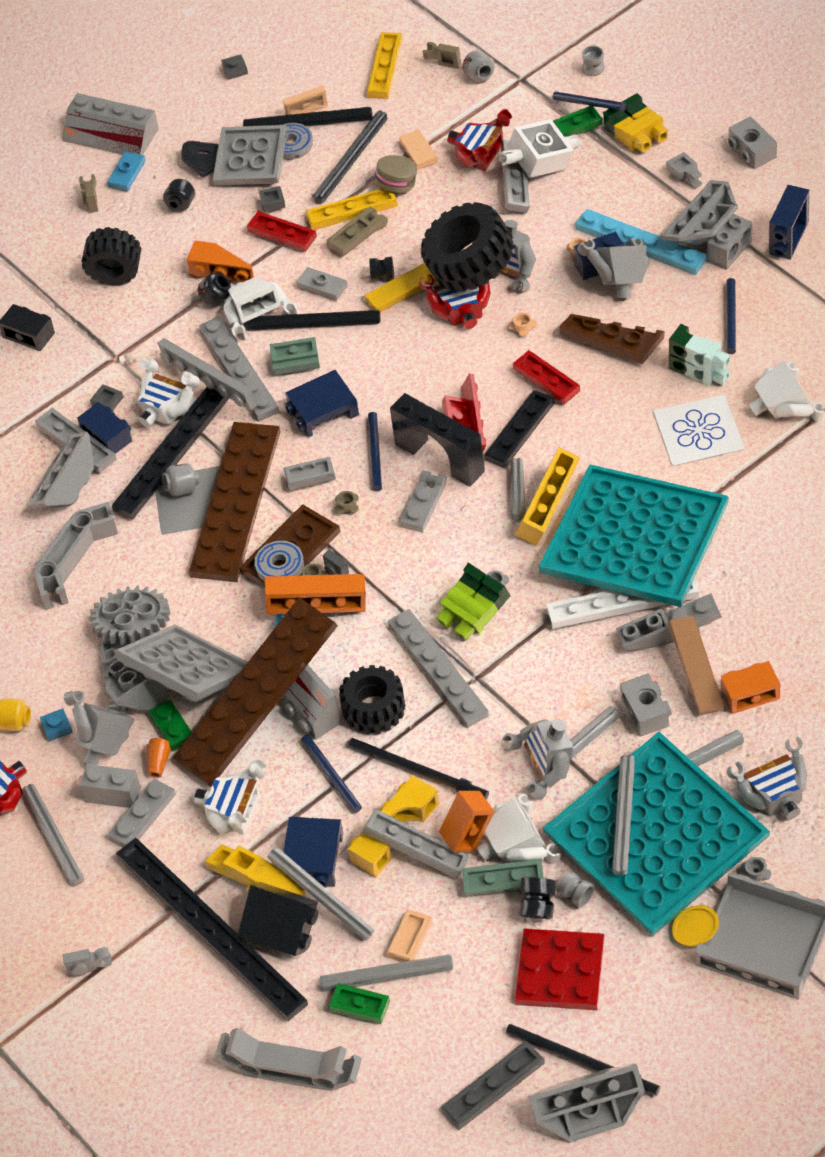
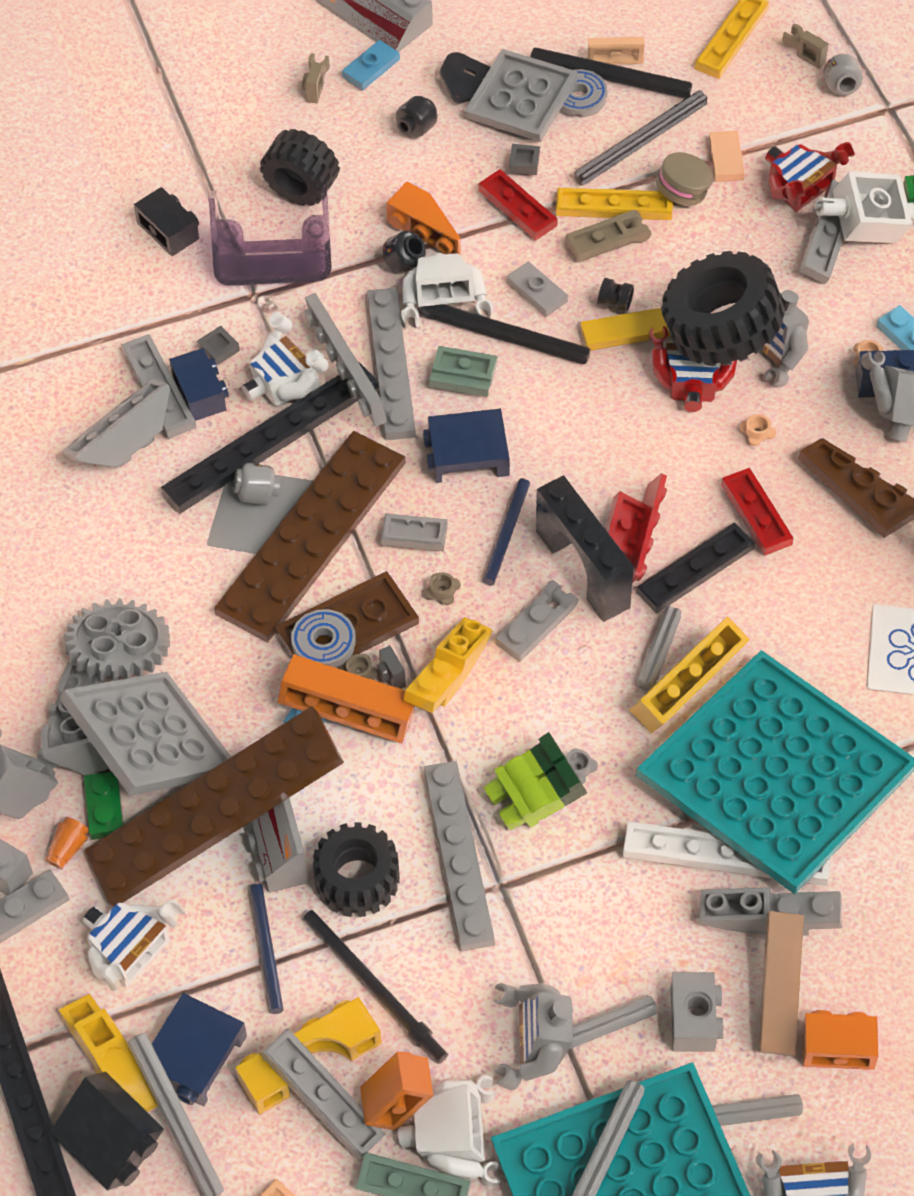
camera: 15 degrees right, 5 degrees up
(69, 548) = (85, 526): light grey piece -> none
(120, 328) = (271, 260): none -> clear purple windscreen
(376, 548) = (450, 666): none -> yellow slope

